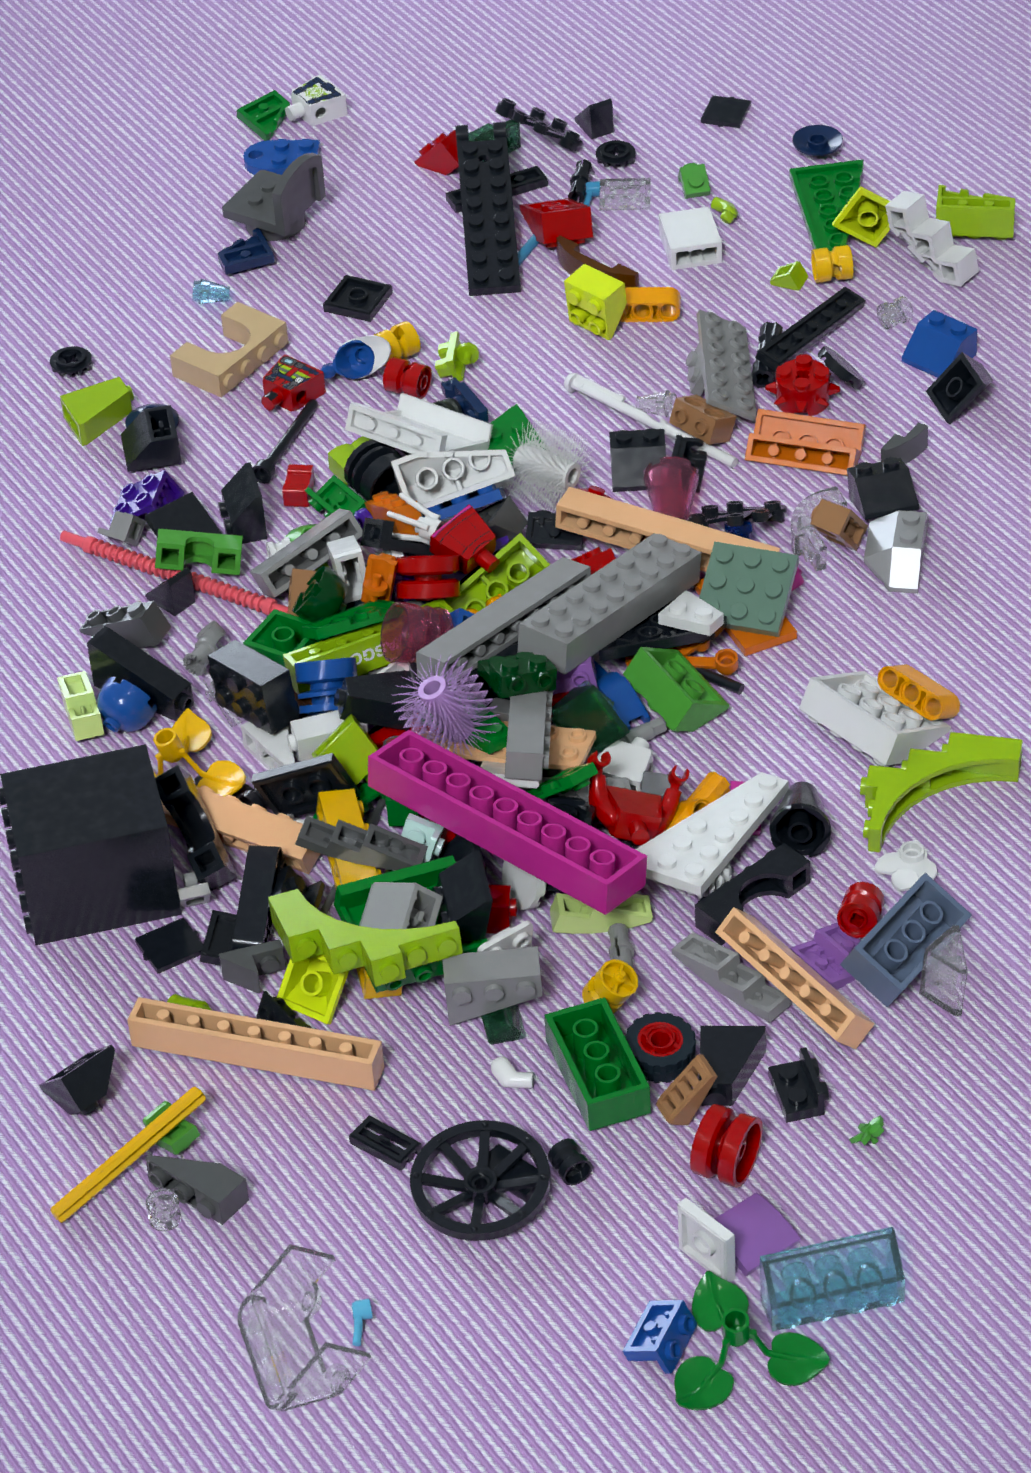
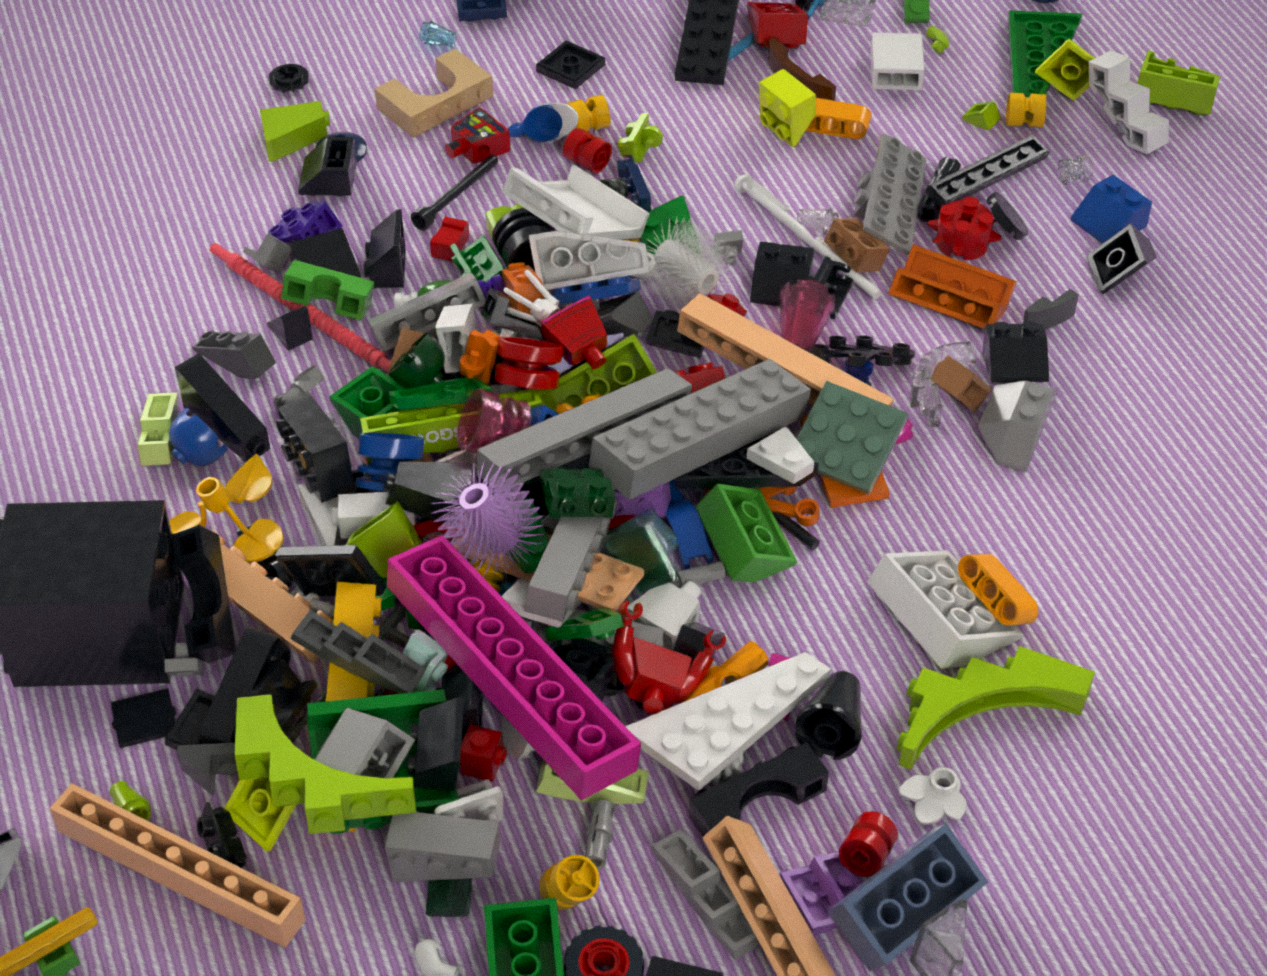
camera: 10 degrees right, 5 degrees up
(583, 432) = (735, 242): none -> light grey tile

